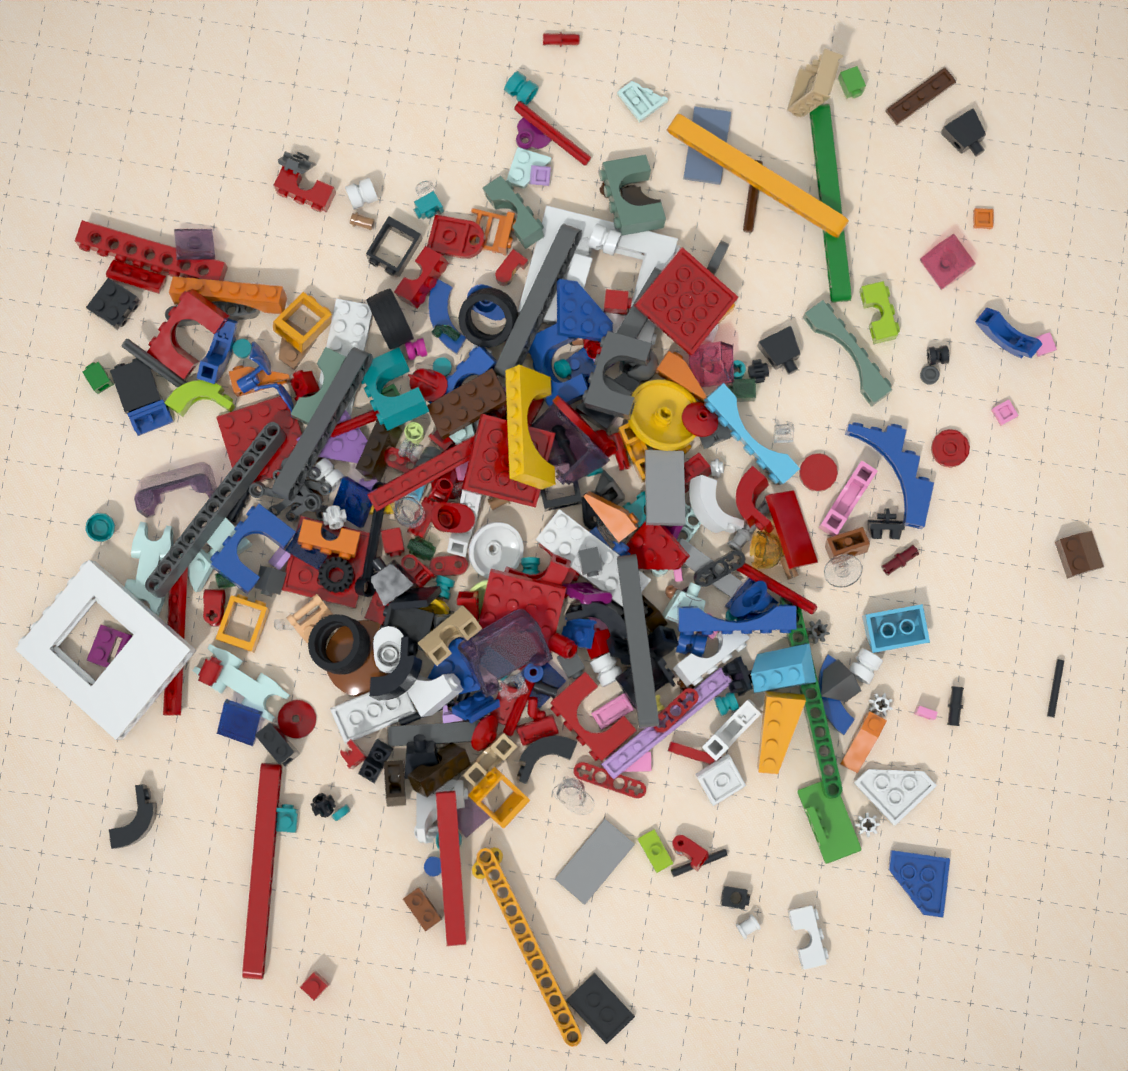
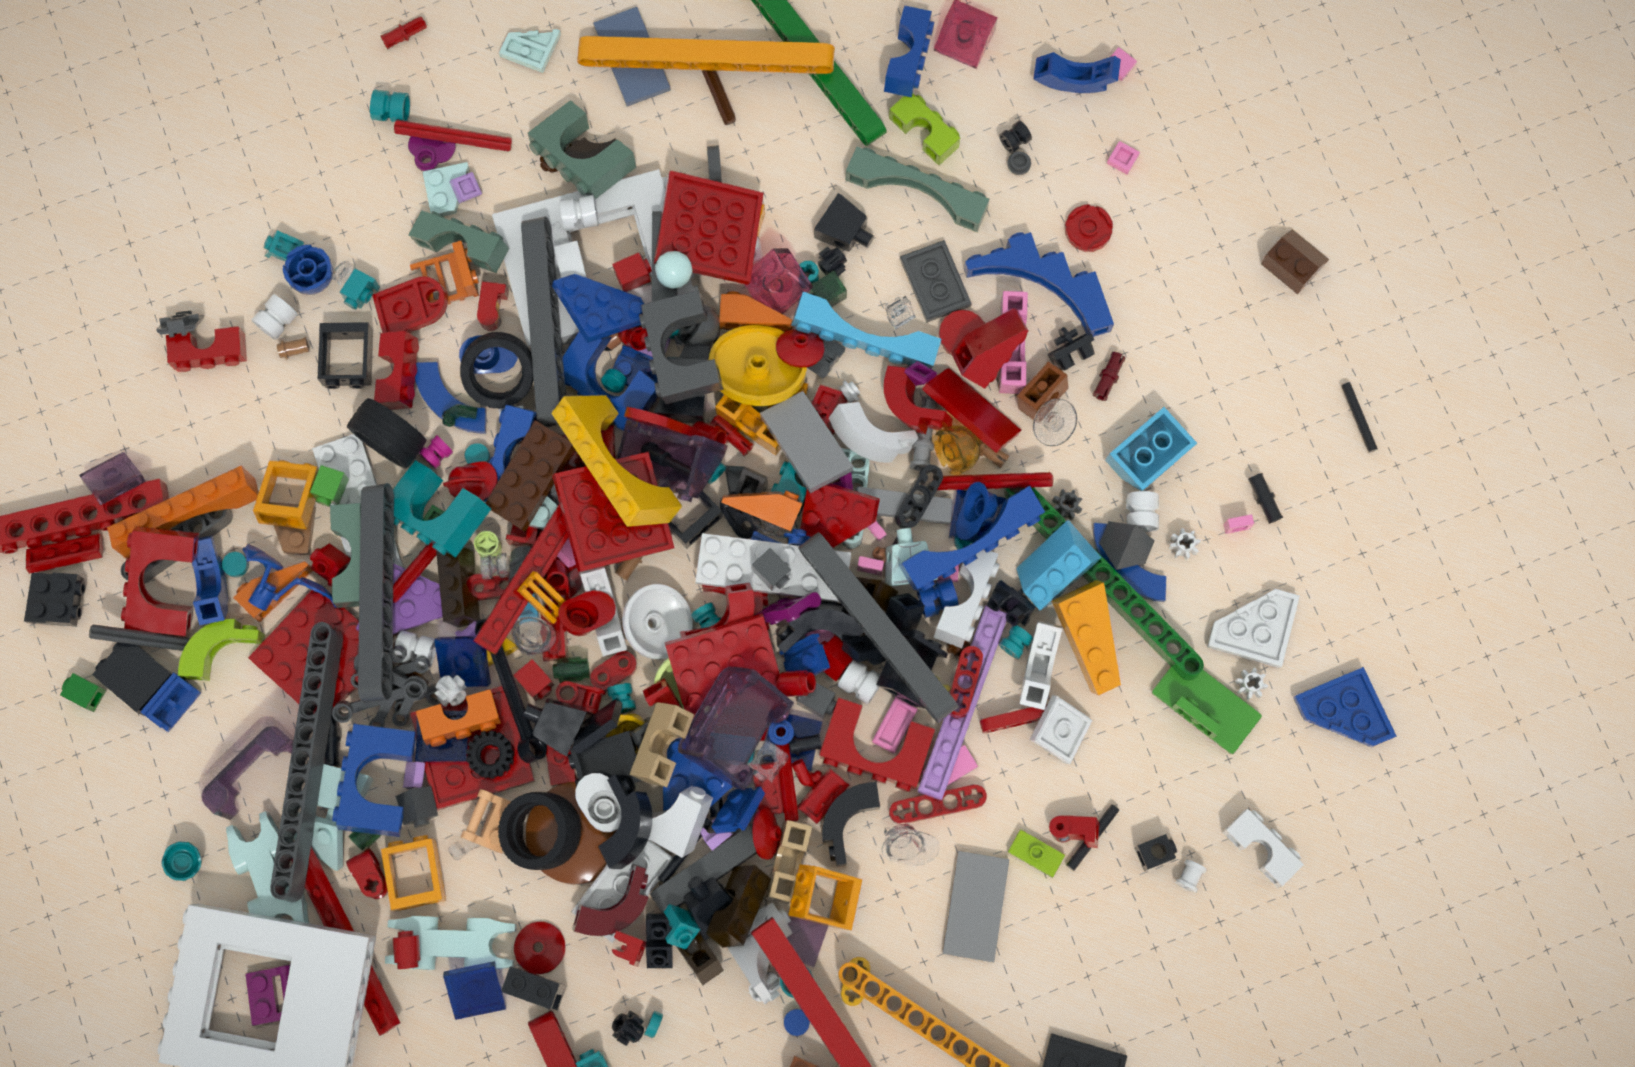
camera: 30 degrees left, 5 degrees down
(332, 332) = (329, 486): none -> bright green brick
(353, 729) = (619, 916): none -> dark red arch
(394, 147) = (280, 245): none -> teal bracket
(396, 761) = (683, 927): none -> teal bracket
(401, 174) = (308, 269): none -> blue cylinder
(427, 507) = (529, 583): none -> light orange tile
(644, 318) = (673, 269): none -> light aqua hair
(659, 595) = (870, 565): none -> bright pink tile
(770, 484) = (919, 373): none -> magenta slope
(821, 424) = (935, 281): none -> dark grey tile
(827, 494) = (989, 347): none -> red slope
(863, 741) = (1190, 594): orange slope -> none
(885, 265) = (903, 71): none -> blue arch

